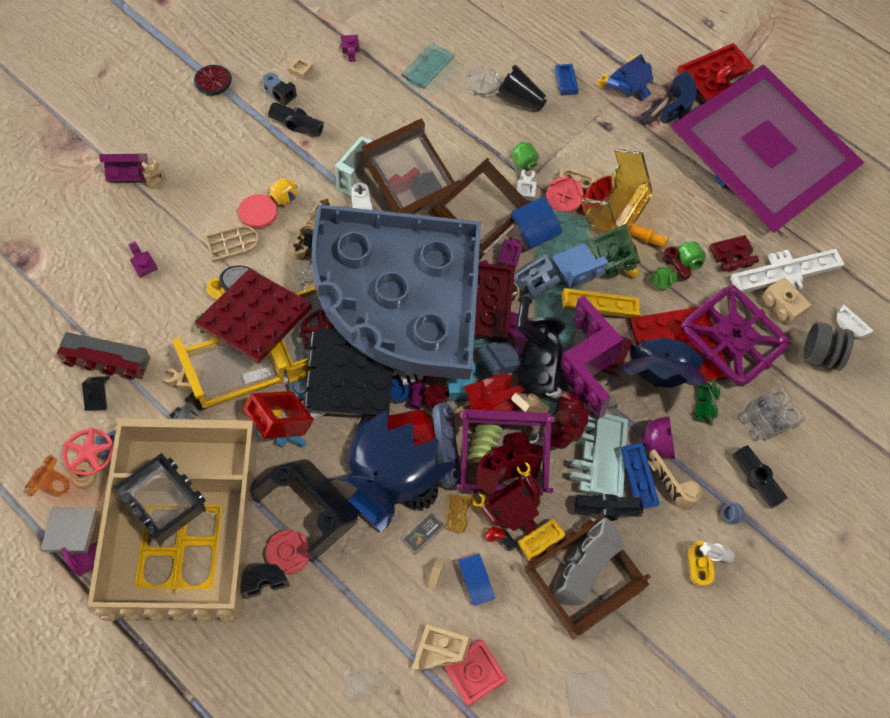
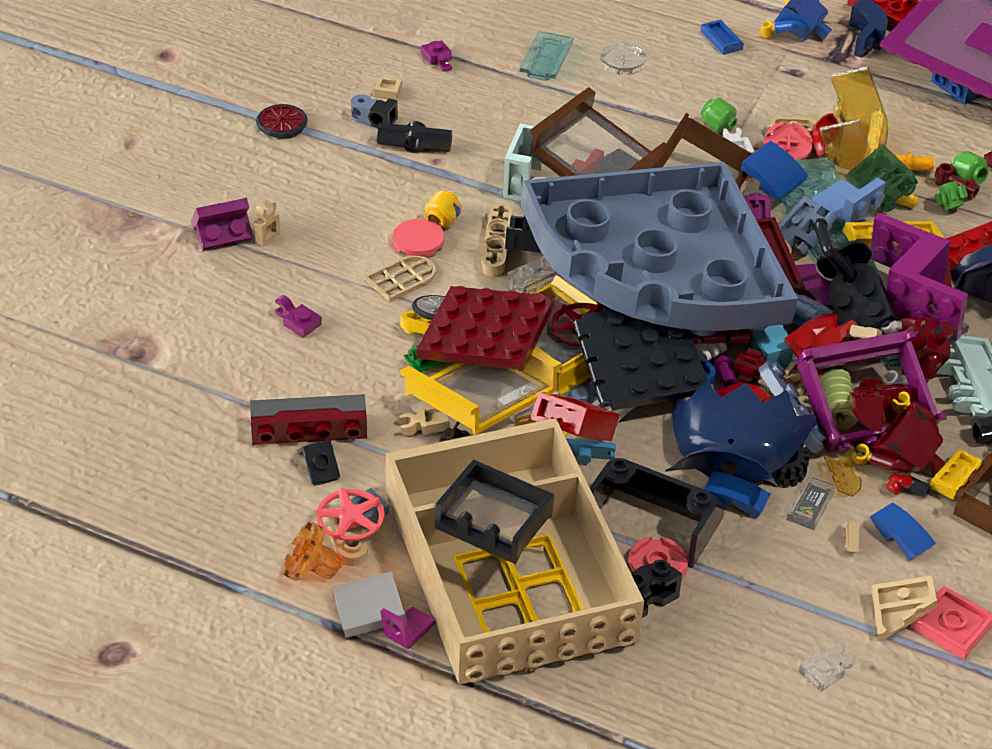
camera: 15 degrees left, 20 degrees down
(521, 90) = (679, 53): black cone -> none

